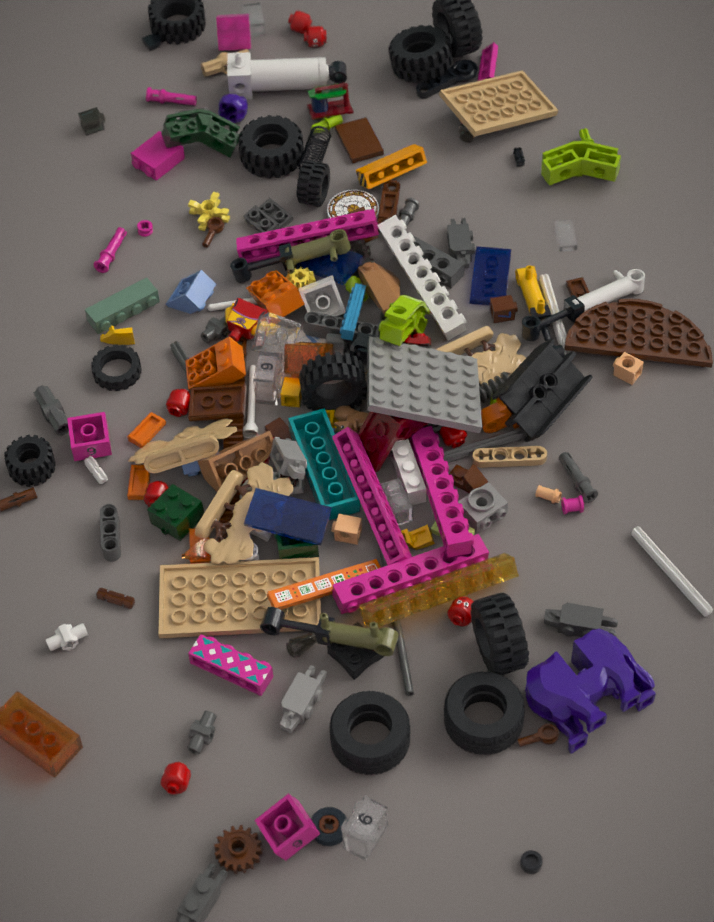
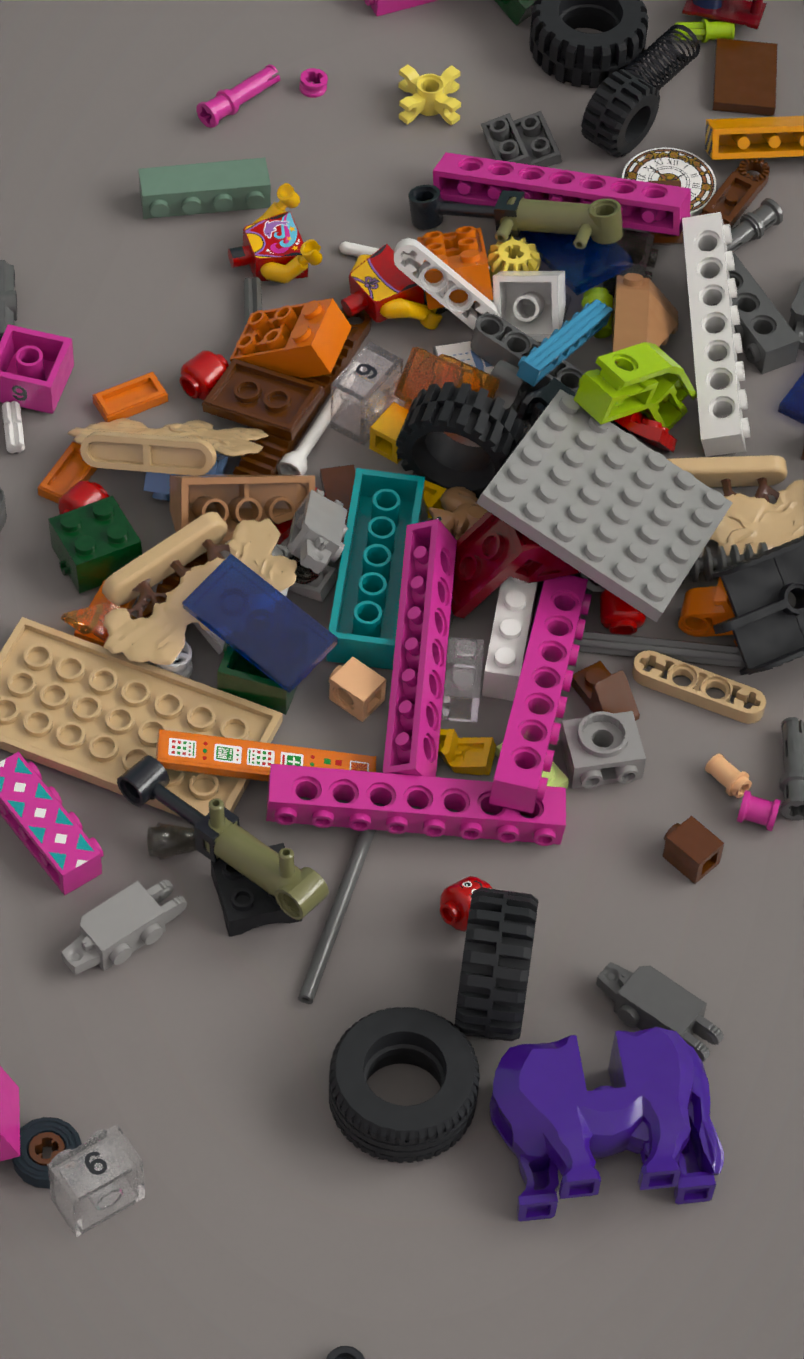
camera: 20 degrees right, 0 degrees up
(113, 353) = (138, 305): black tyre -> none
(118, 336) = (171, 234): yellow slope -> none
(176, 321) = (275, 245): none -> torso
(192, 293) = (330, 211): medium blue slope -> none
(214, 225) = (425, 122): reddish brown plate -> none
(215, 329) = (329, 283): dark grey axle -> none
(274, 333) = (415, 321): clear brick -> none
(280, 306) = (442, 289): none -> white beam
(370, 757) = (204, 1075): black tyre -> none
(439, 590) = (445, 851): clear yellow brick -> none
(547, 734) = (493, 1168): reddish brown plate -> none
(552, 537) = (692, 849): none -> reddish brown brick

